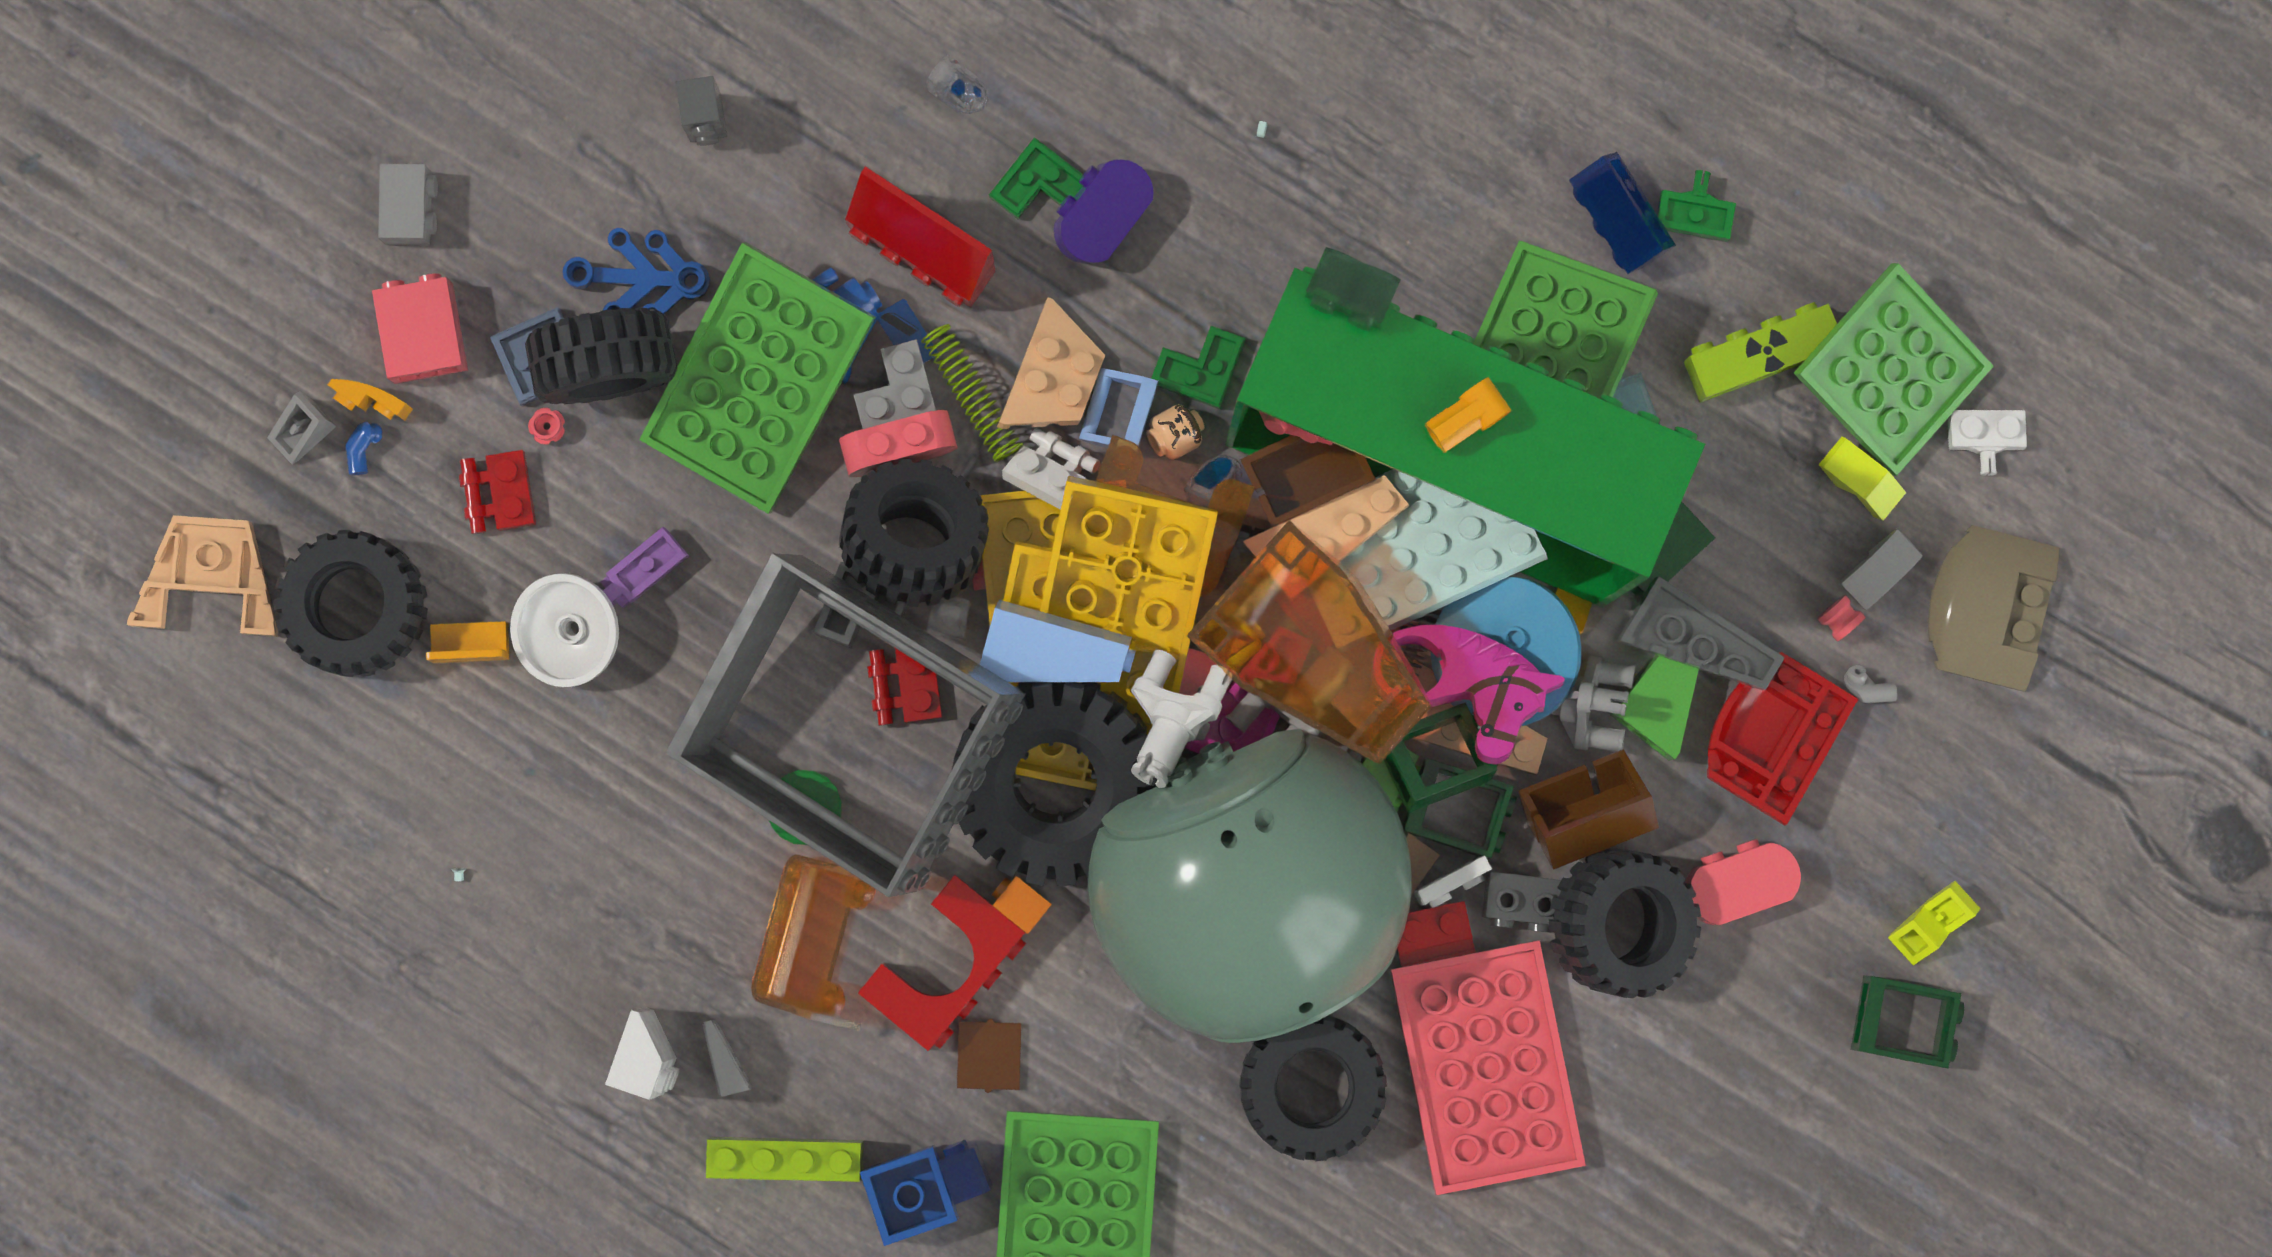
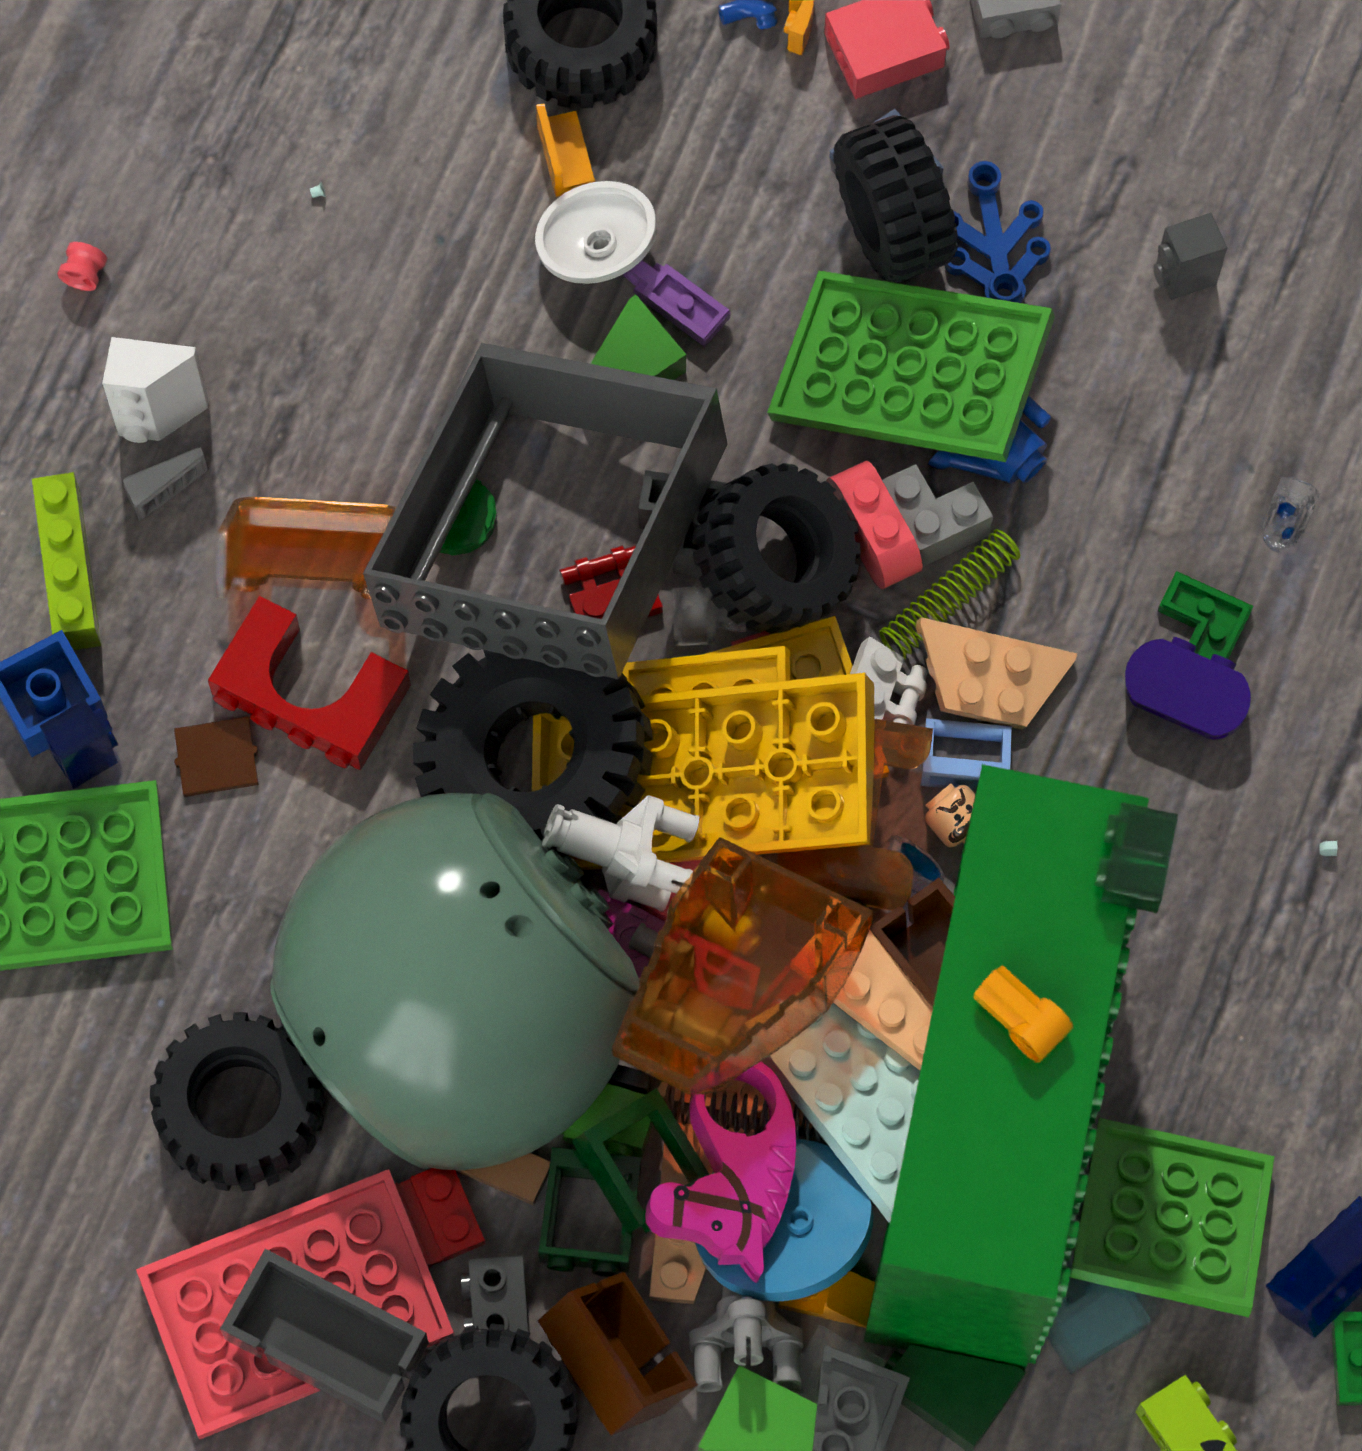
camera: 85 degrees right, 15 degrees down
(493, 1101) = (82, 266): none -> coral wheel
(509, 491) = (735, 160): red plate -> none
(537, 422) = (813, 171): coral plate -> none
(690, 619) = (641, 345): none -> bright green slope
(903, 326) = (1009, 514): blue sticker -> none
(919, 239) = (1102, 500): red slope -> none
(1020, 903) = (388, 752): orange brick -> none
(1050, 648) = (676, 699): light blue slope -> none
(1465, 875) = (492, 1205): white plate -> none
(1533, 1046) = (324, 1335): none -> dark grey piece

